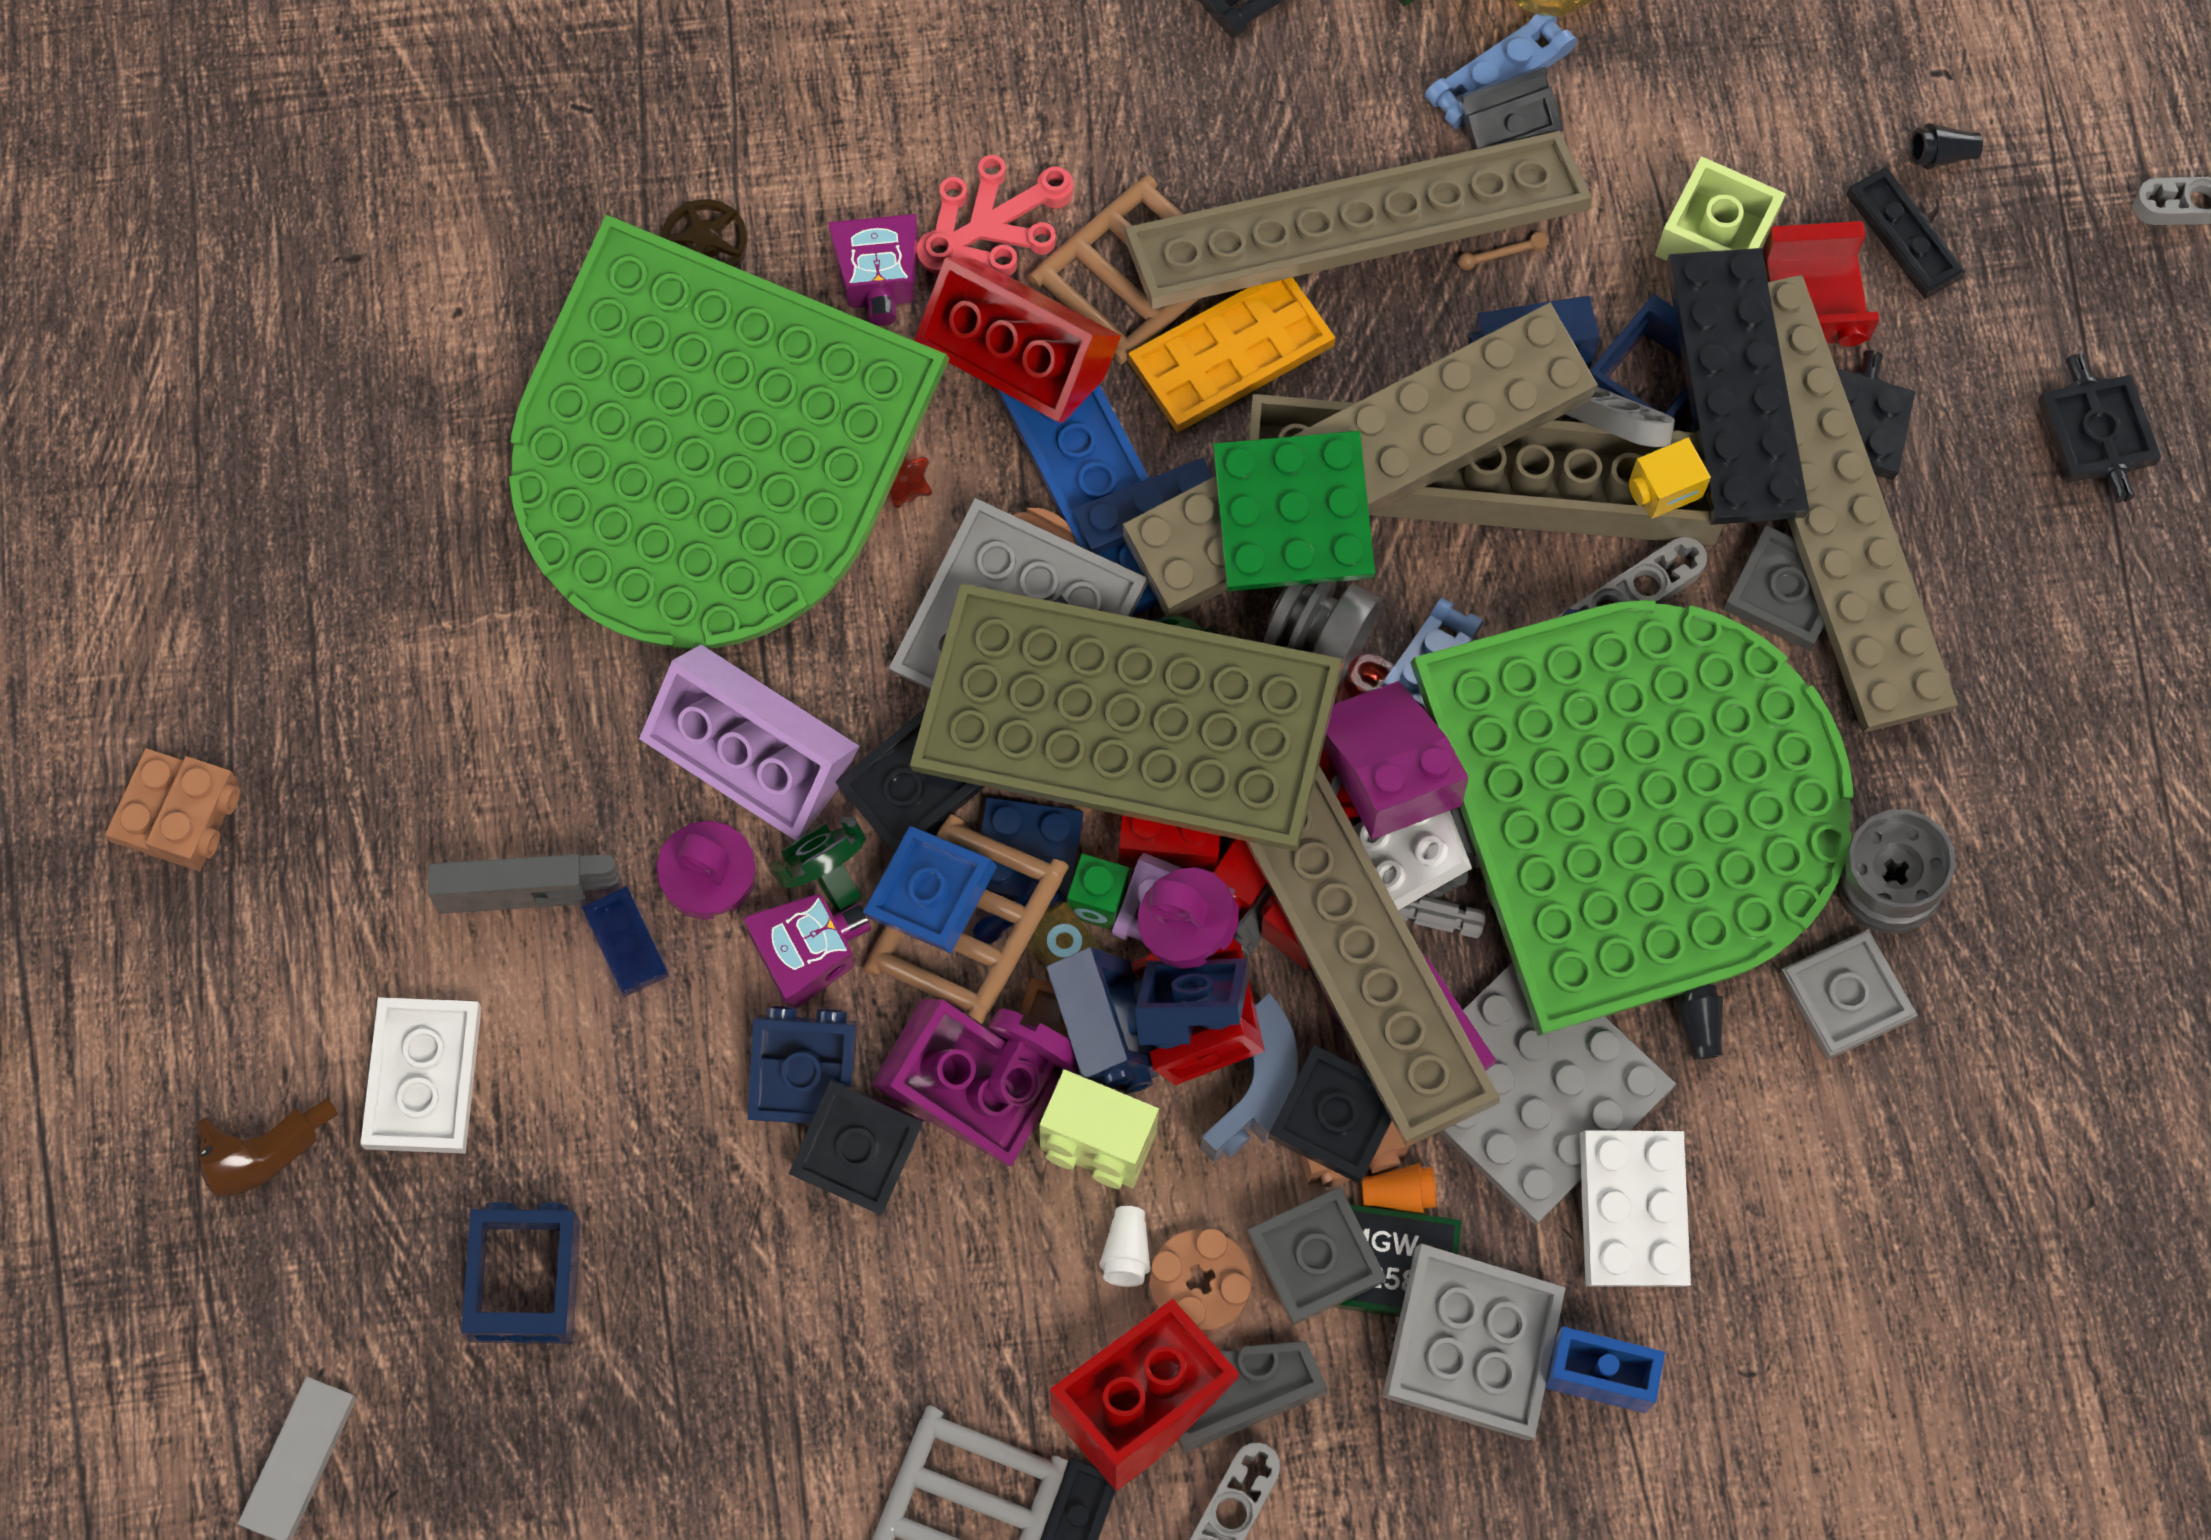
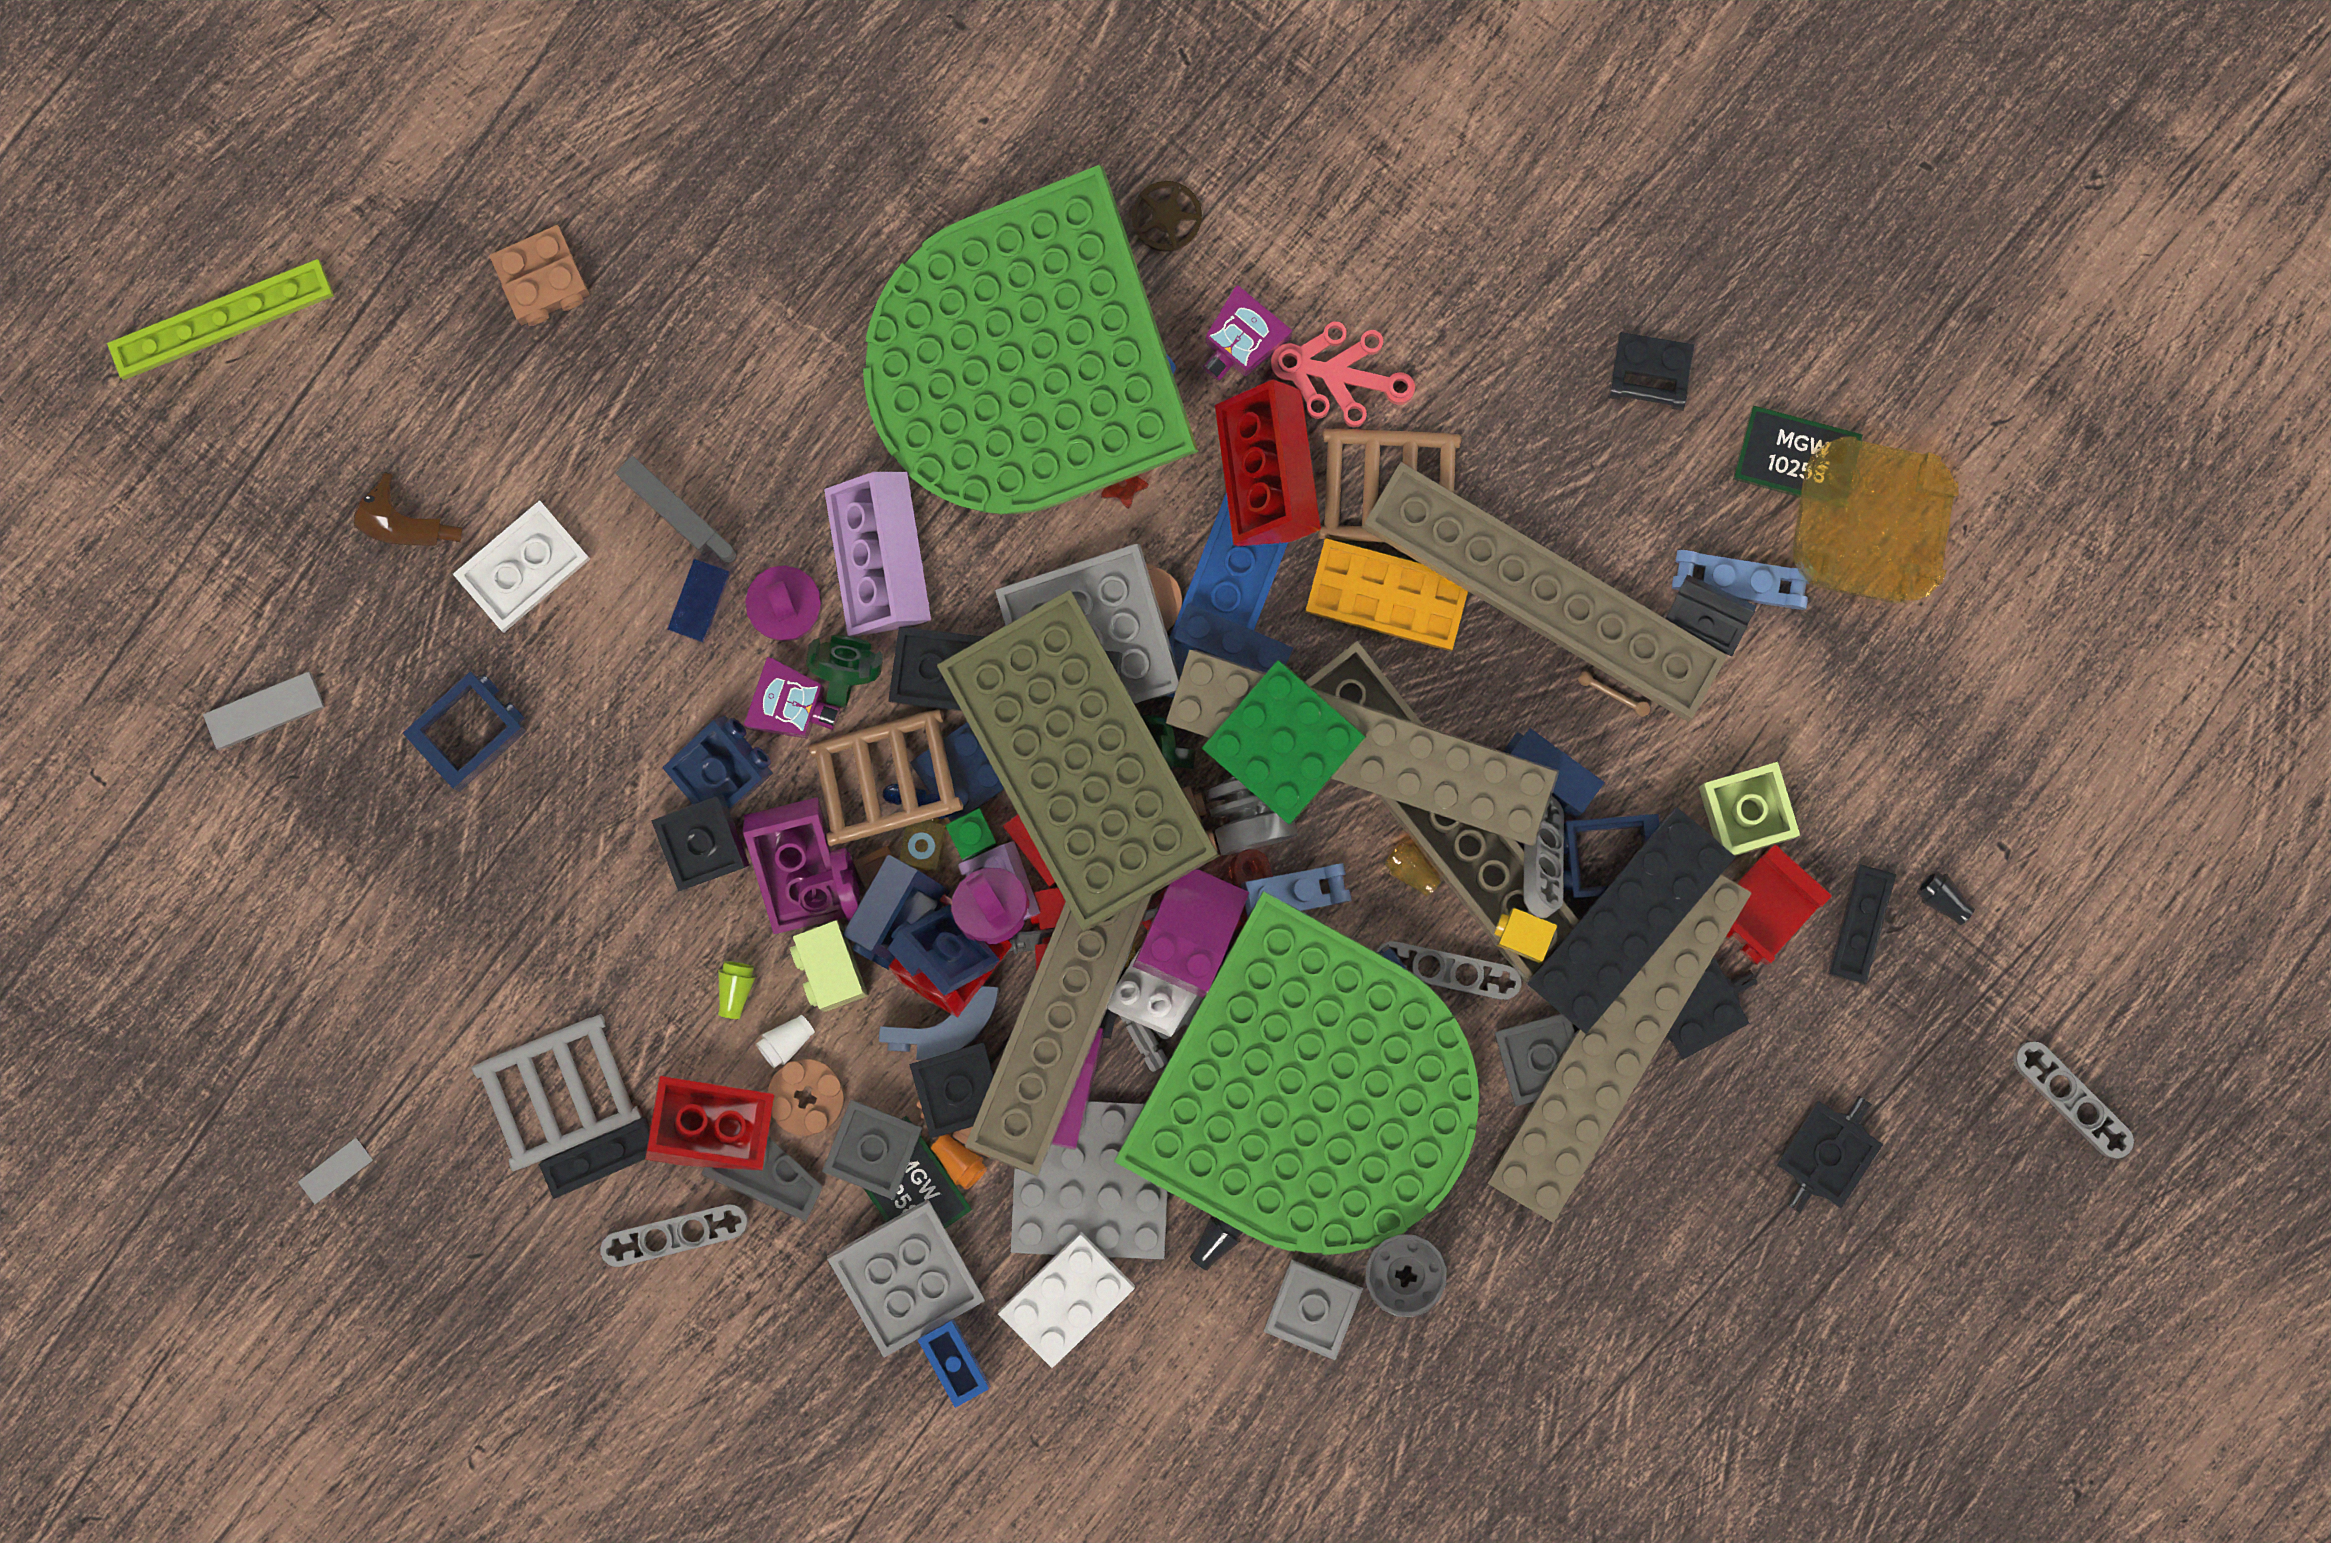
camera: 50 degrees right, 15 degrees up
(930, 889) = (879, 744): blue plate -> none
(1028, 1249) = (734, 987): none -> lime cone
(1502, 544) = (1411, 868): none -> clear yellow cone

